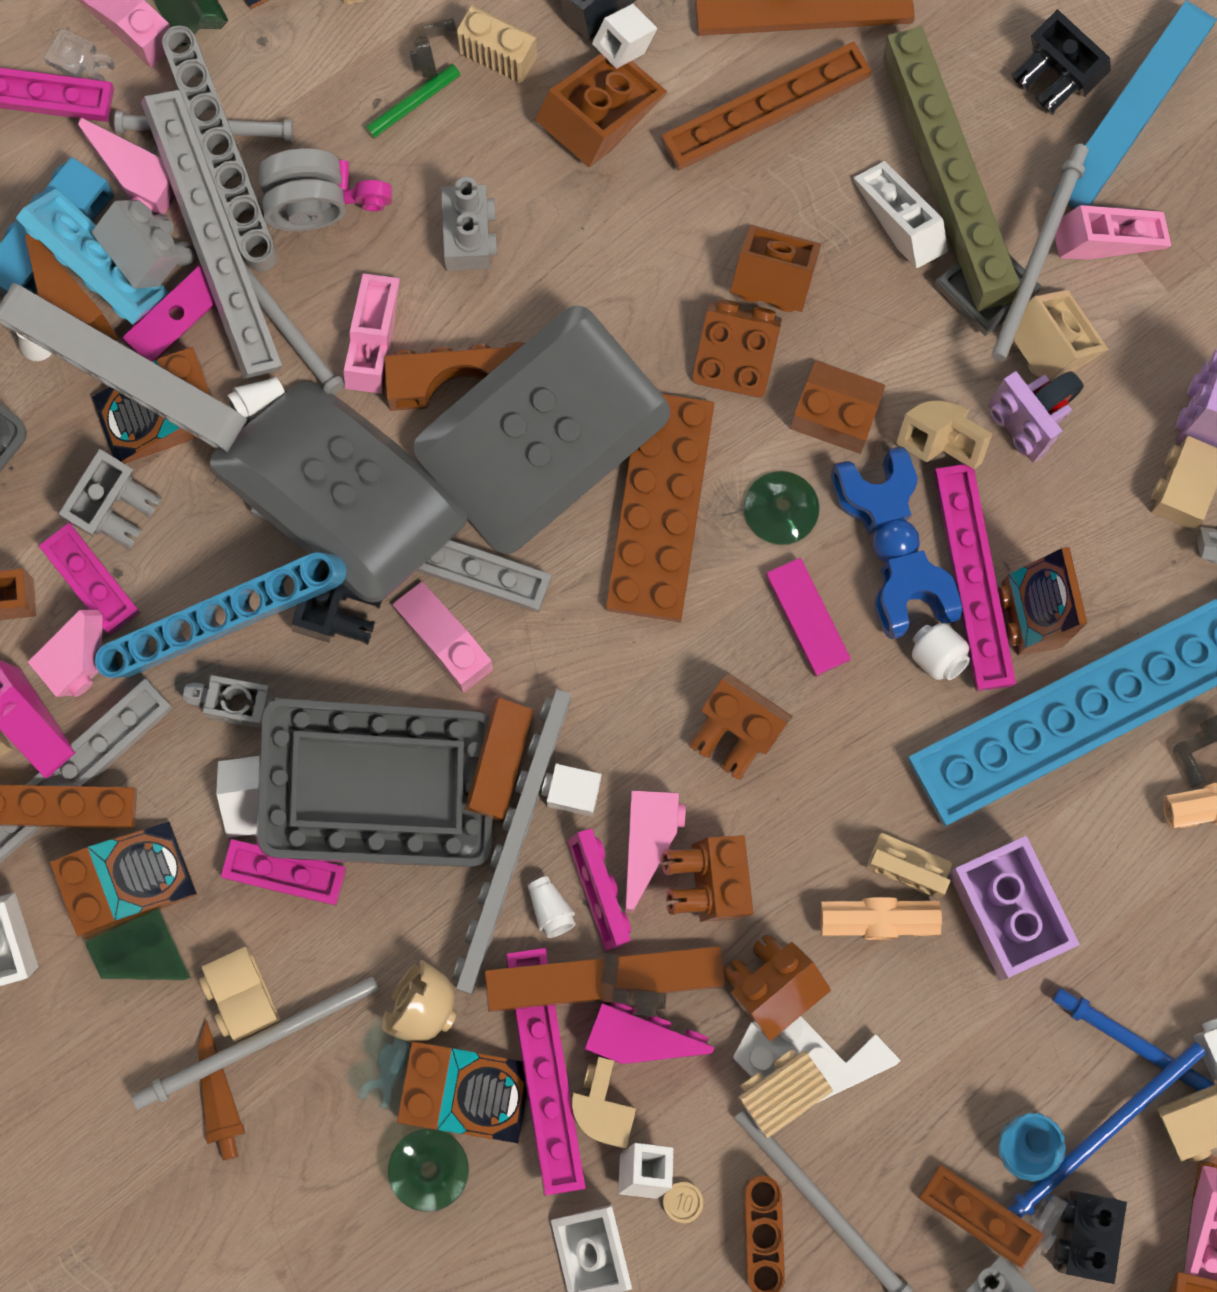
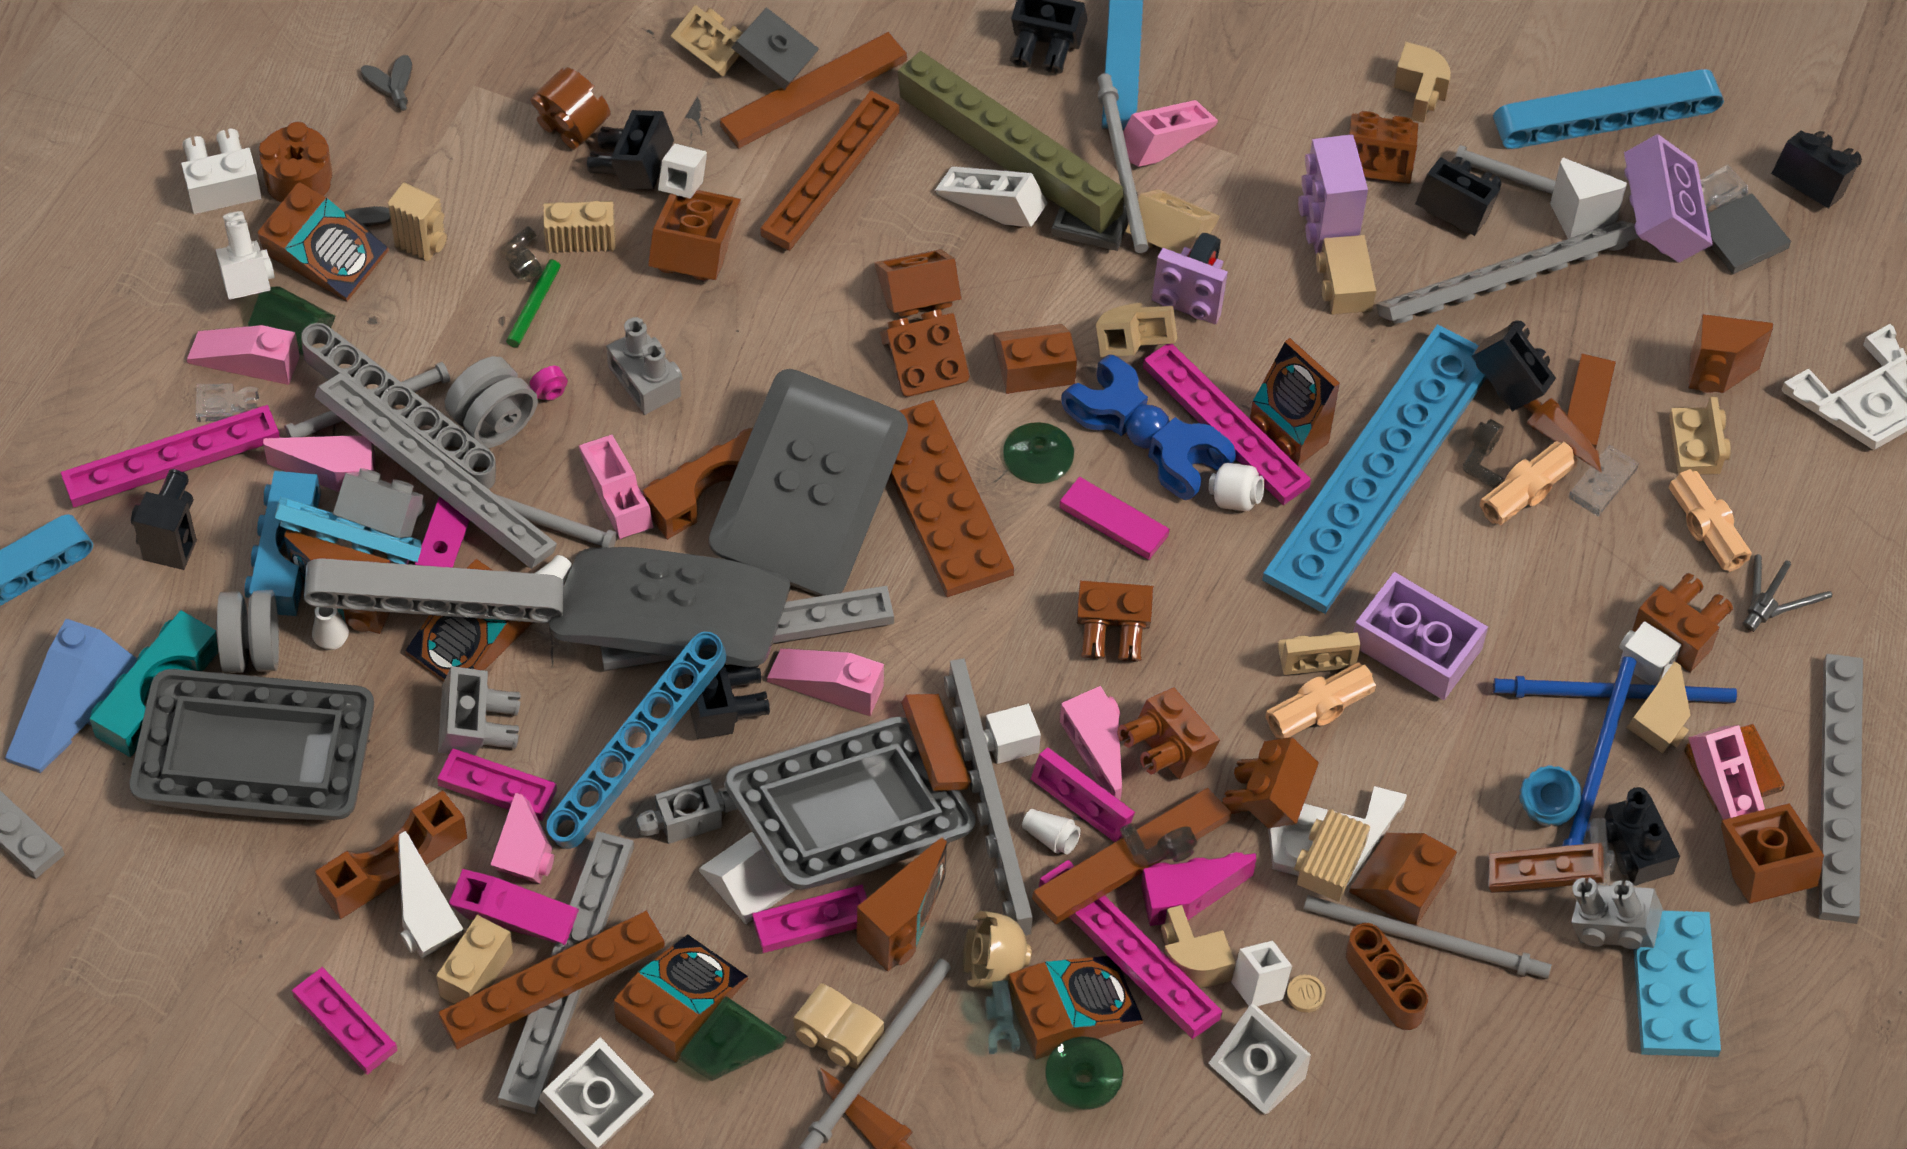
camera: 30 degrees left, 20 degrees down
(358, 919) = (898, 911): none -> dark orange slope
(845, 1141) = (1405, 875): none -> dark orange slope

